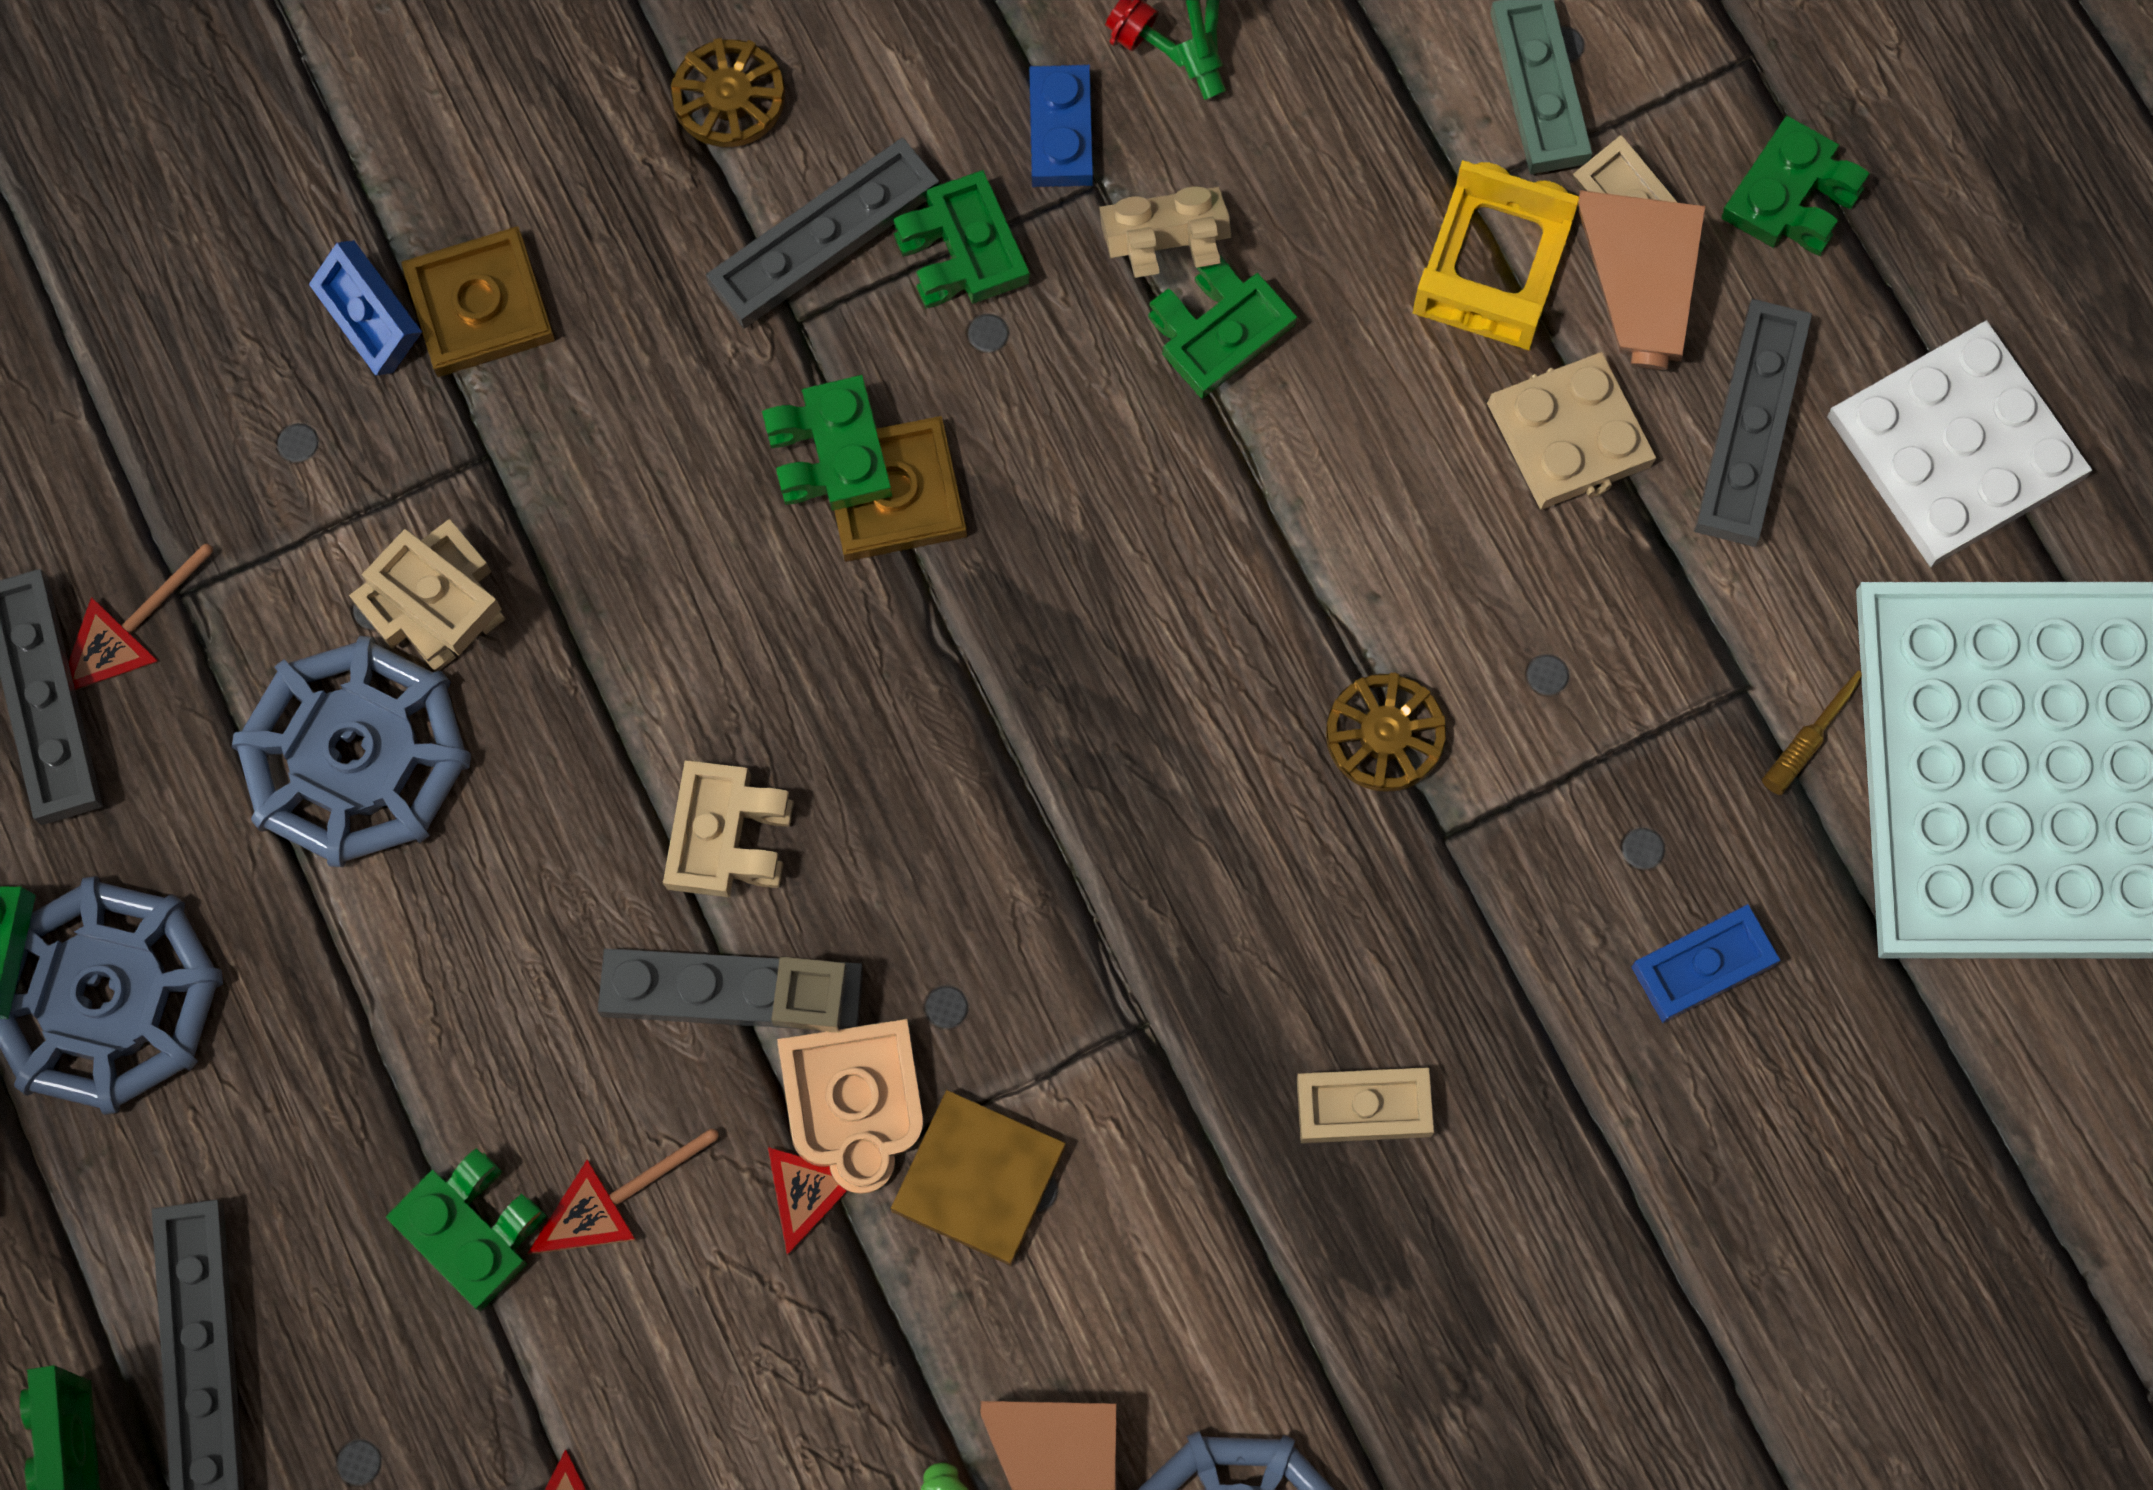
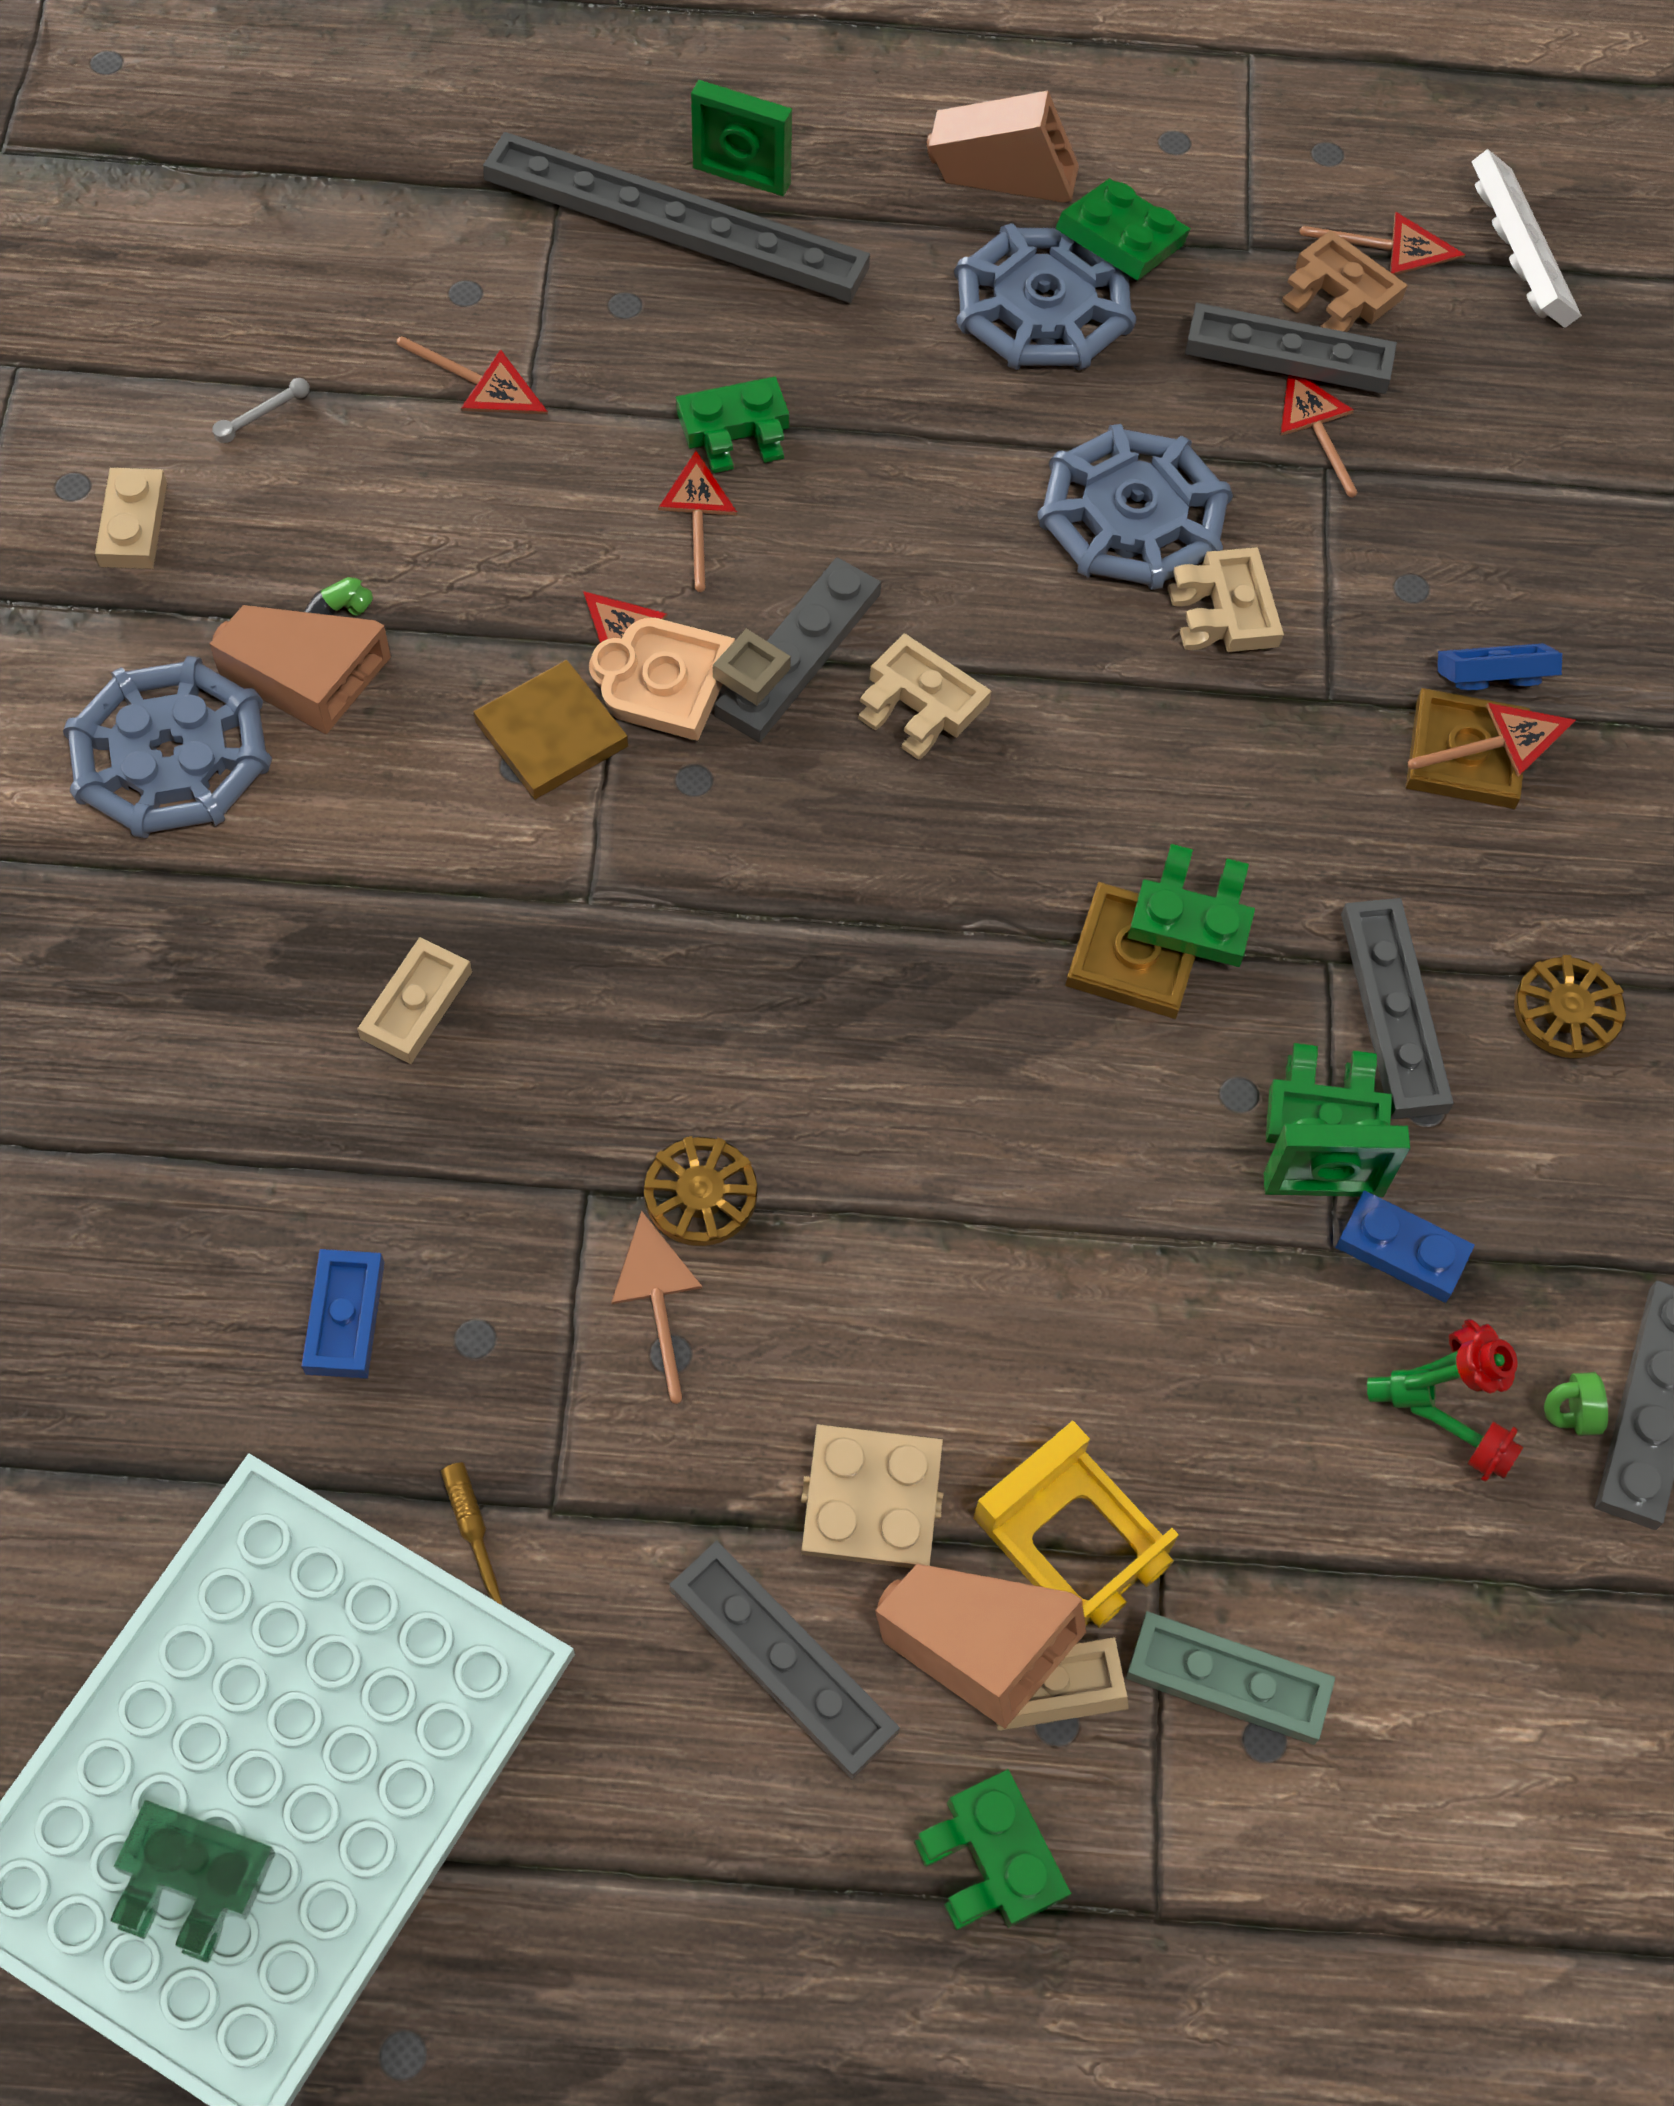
camera: 115 degrees right, 10 degrees down
(431, 592) = (1222, 580): tan plate -> none
(446, 248) = (1520, 731): none -> piece
(1030, 189) = (1336, 1158): none -> green plate
(1145, 225) = (1261, 1268): tan plate -> none
(1226, 336) = (1126, 1264): green plate -> none
(1485, 734) = (651, 1272): none -> nougat piece
(1959, 443) = (650, 1846): white plate -> none

